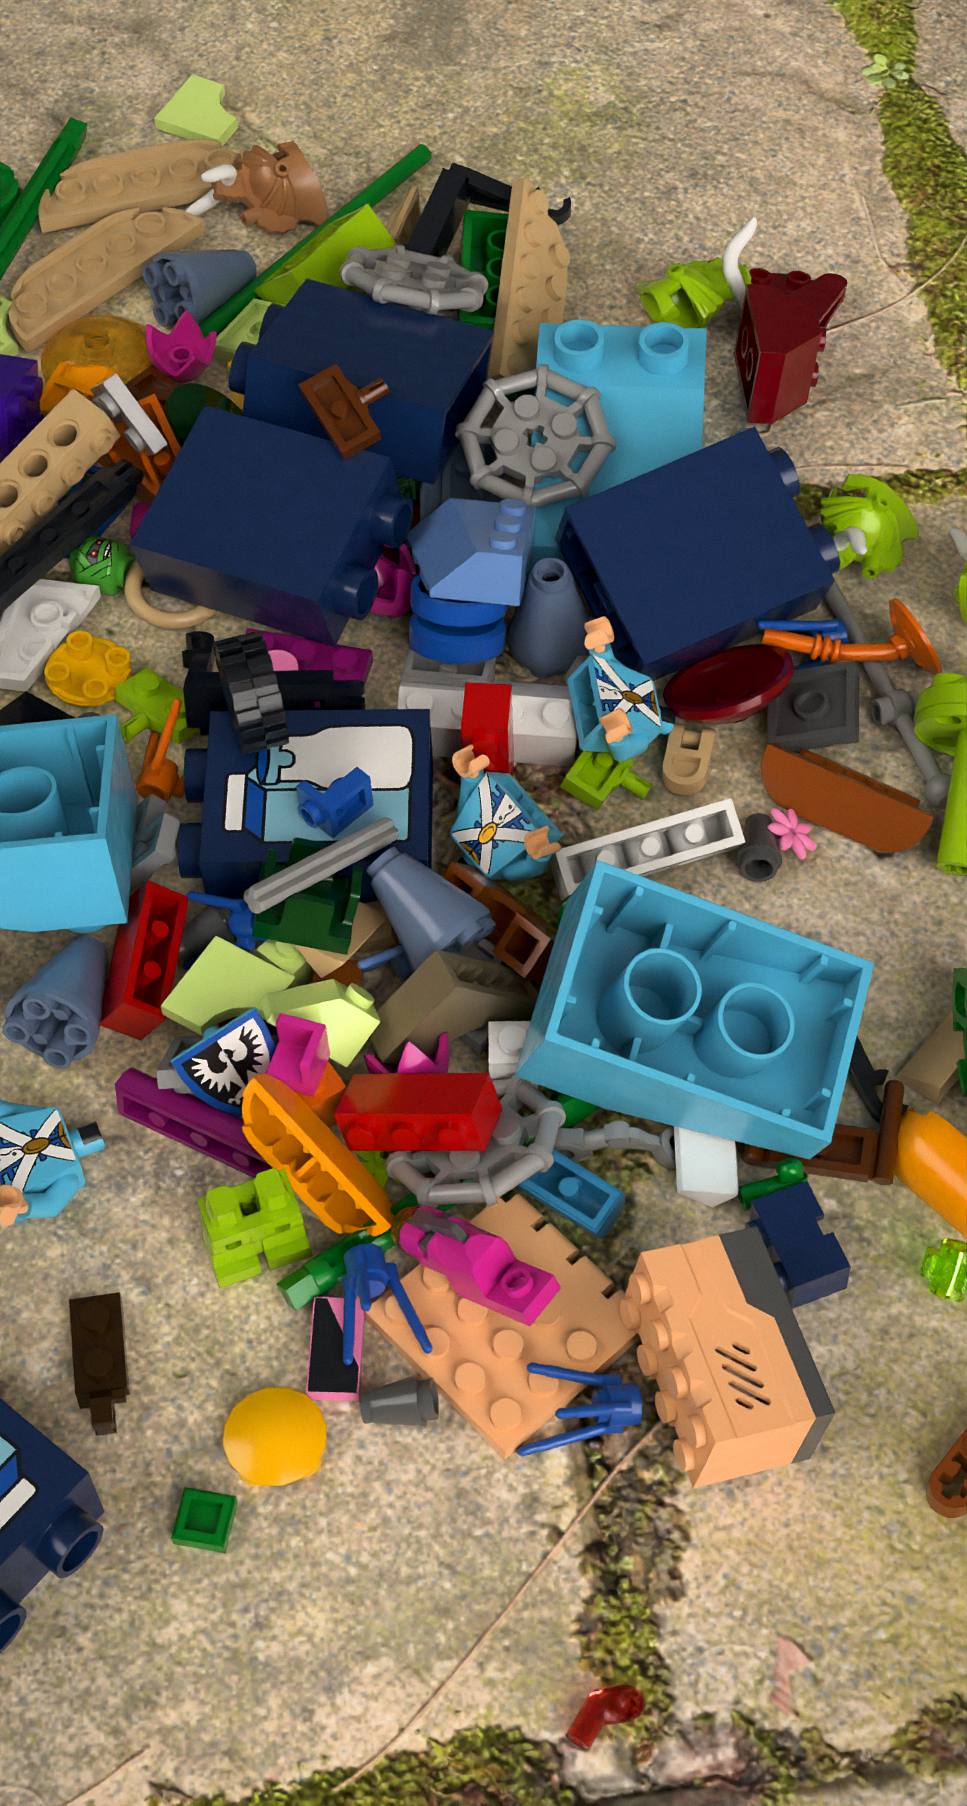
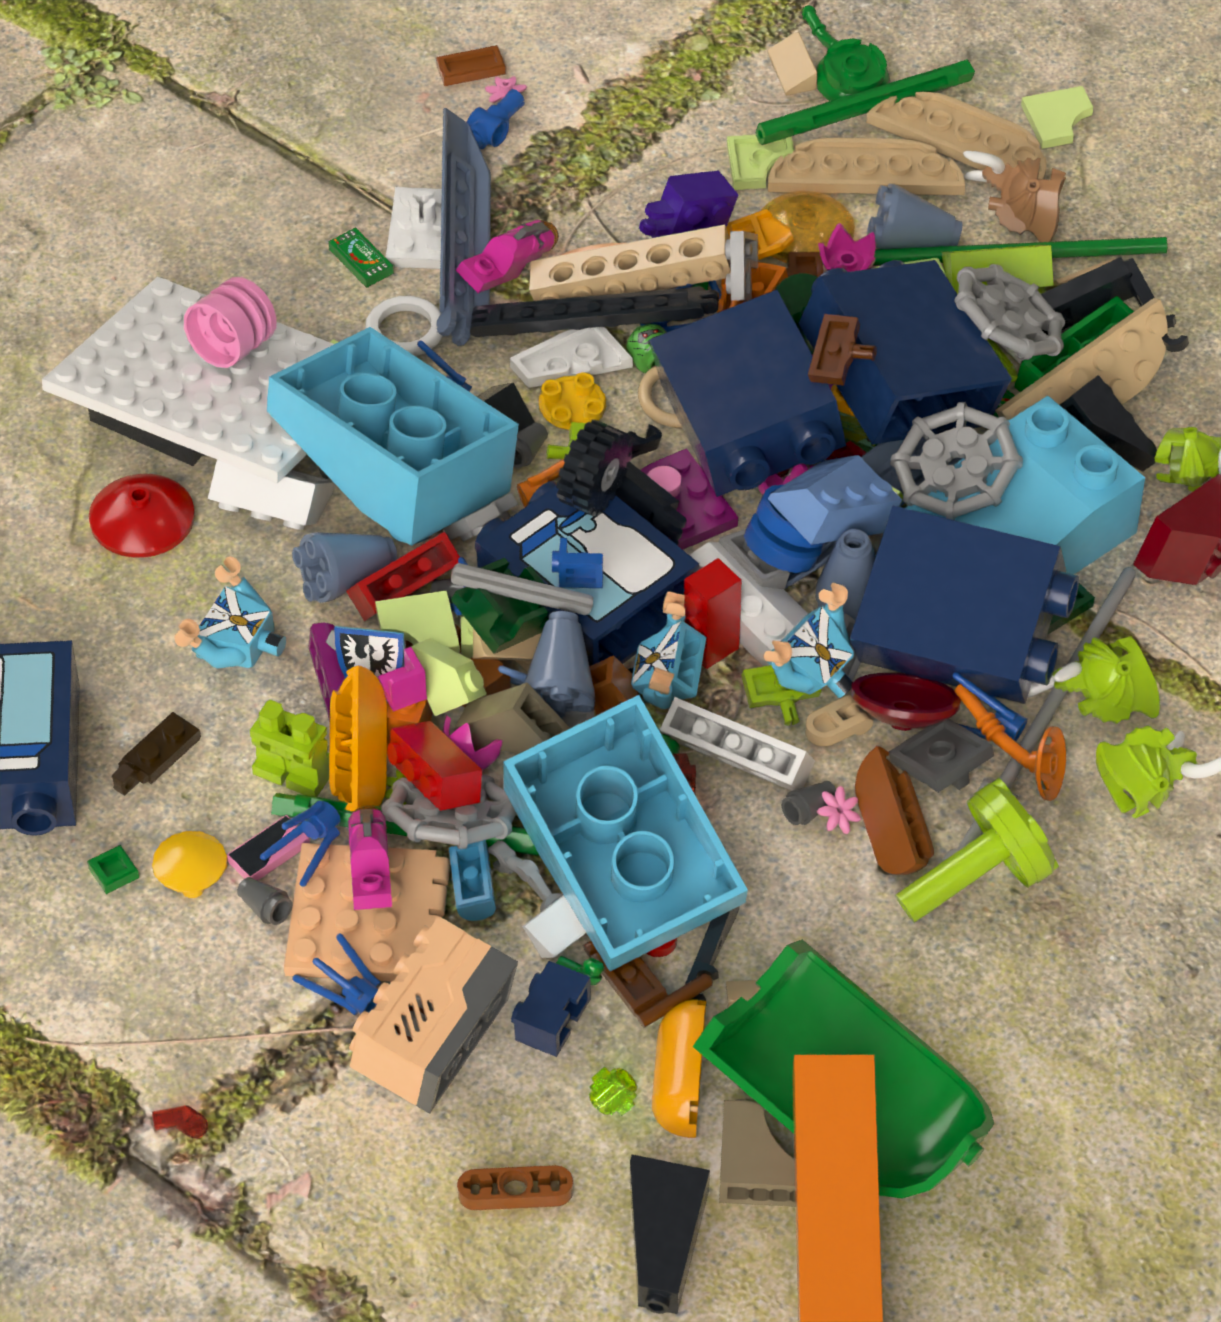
camera: 45 degrees right, 5 degrees down
(570, 301) = (1107, 419): none -> black slope

